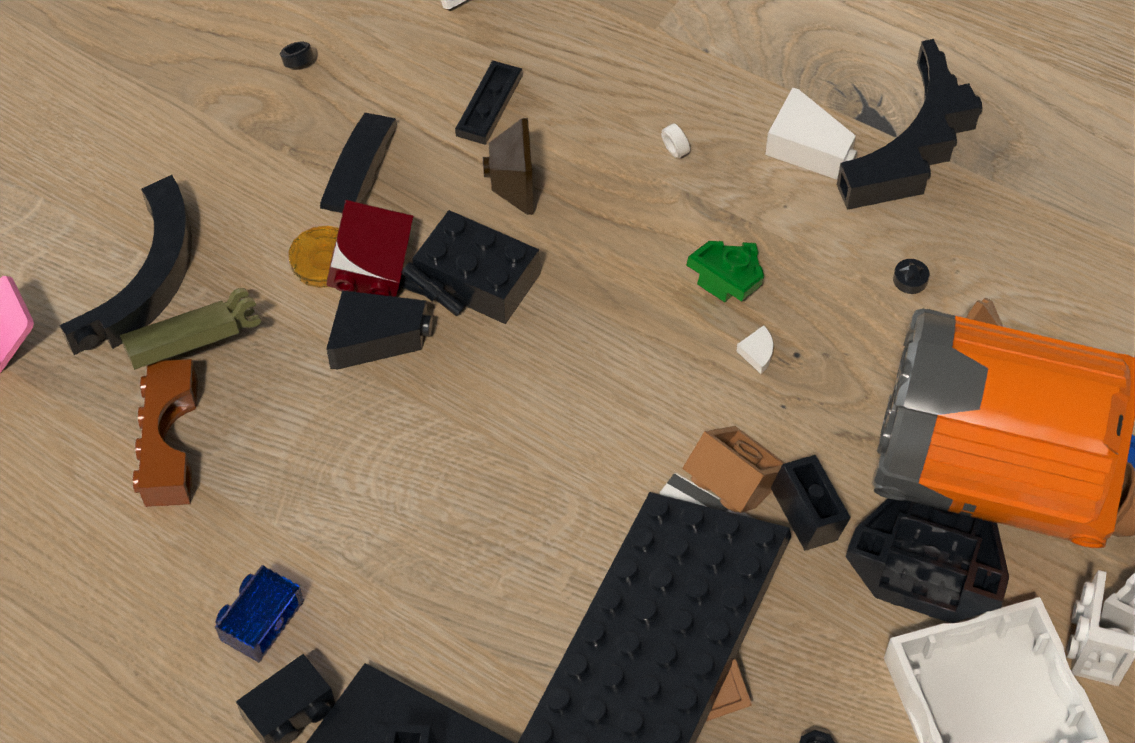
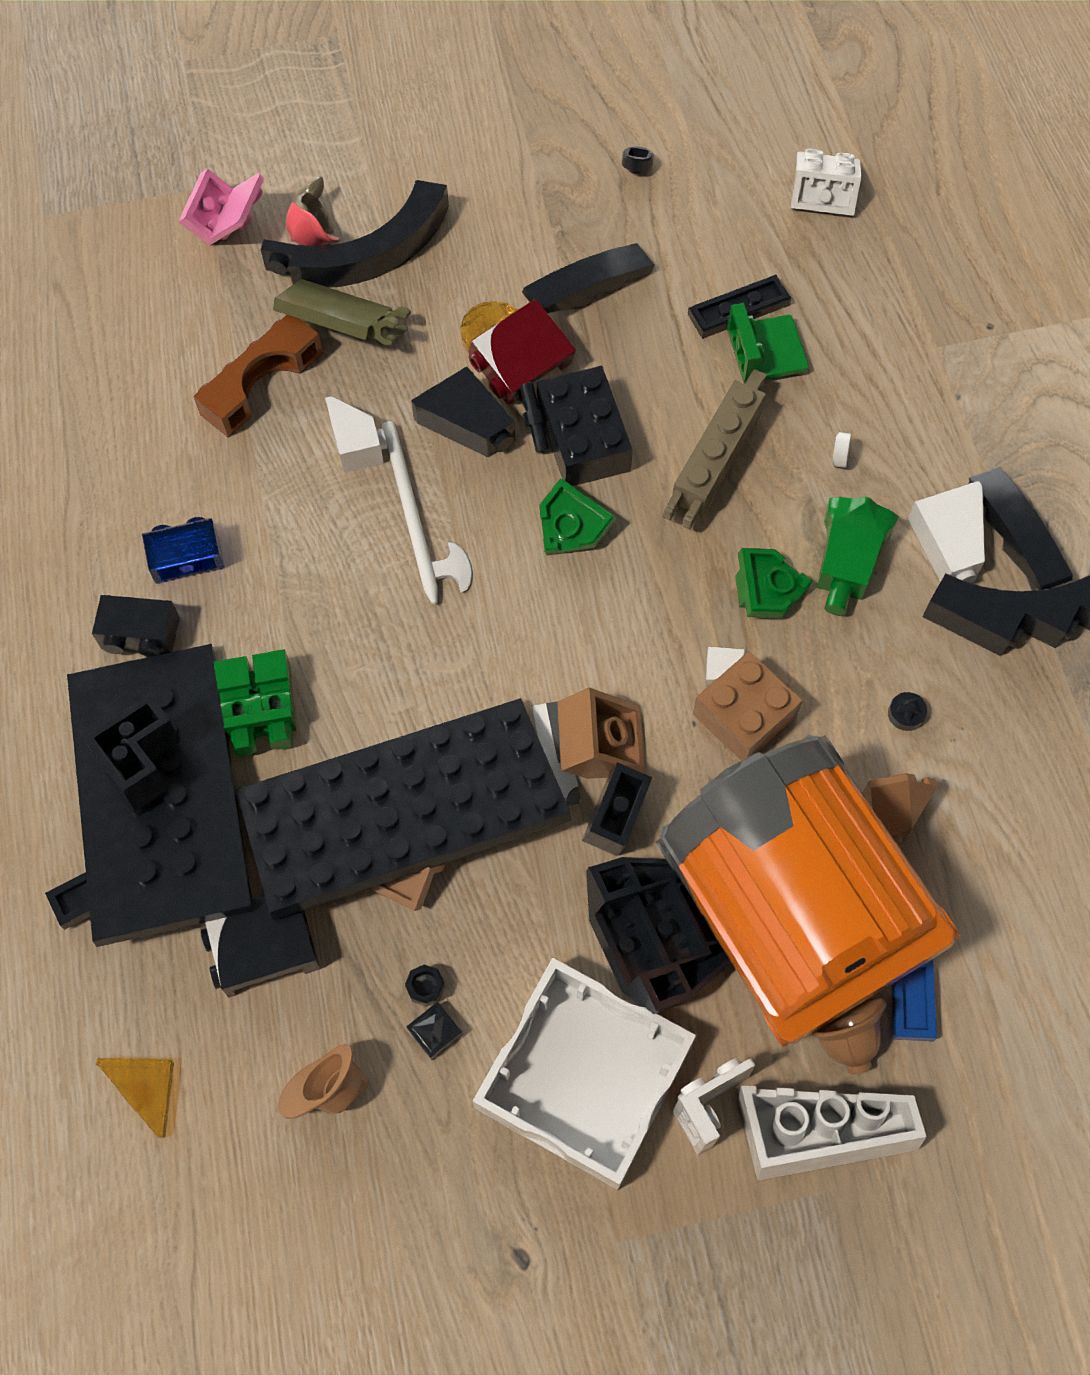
camera: 45 degrees right, 10 degrees up
(73, 288) = (307, 217): none -> hair
(301, 414) = (355, 436): none -> white slope
(455, 668) = (255, 697): none -> green hips
(487, 443) = (457, 563): none -> white piece
(511, 166) = (693, 371): dark brown slope -> none
(542, 338) = (572, 520): none -> green plate
(548, 111) = (765, 344): none -> green bracket
(593, 206) = (717, 449): none -> dark tan hinge
(758, 199) = (853, 542): none -> green piece
(813, 360) = (747, 706): none -> medium nougat brick
(856, 101) = (1022, 531): none -> black slope

